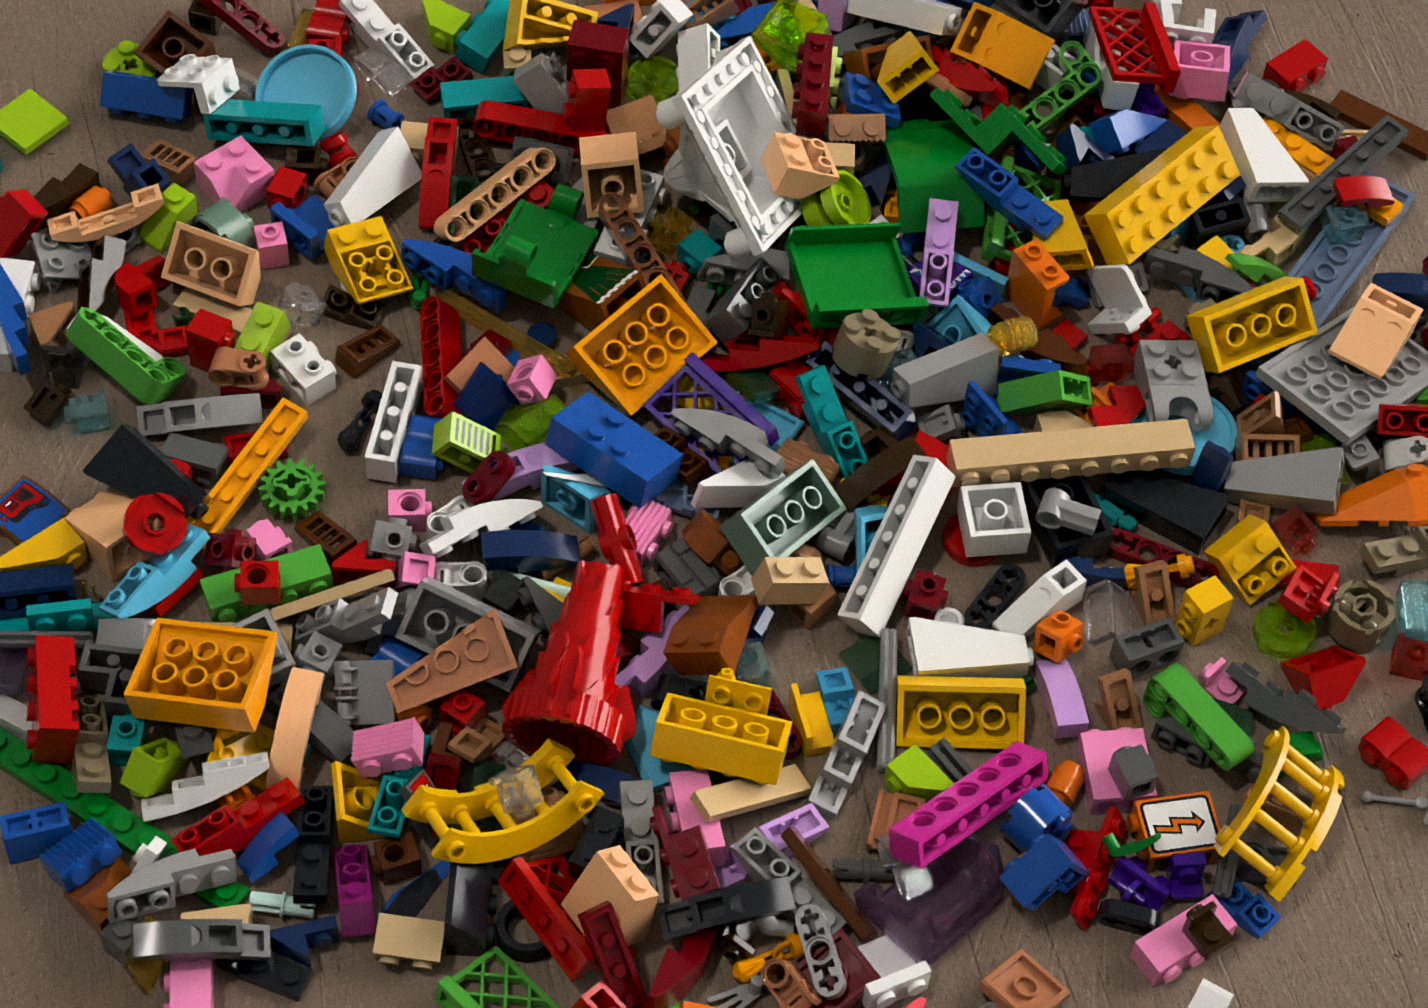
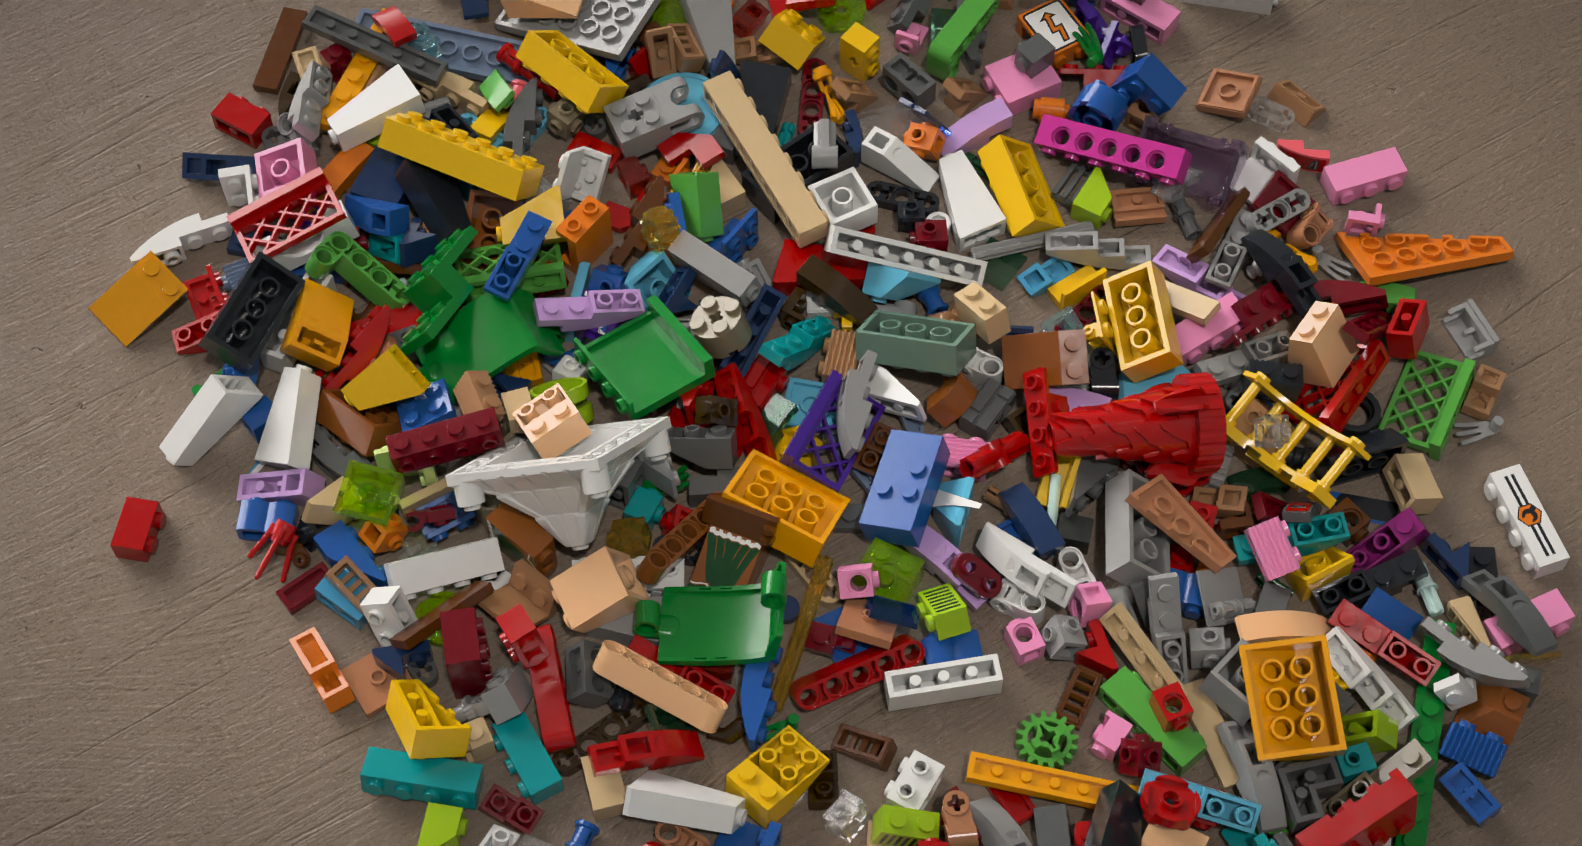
camera: 105 degrees left, 5 degrees up
(351, 436) = (970, 718): black piece -> none
(608, 304) = (740, 519): none -> reddish brown hinge
(643, 56) = (431, 621): none -> reddish brown tile
(959, 583) = (908, 213): none -> black bracket
(1088, 639) = (924, 115): none -> piece

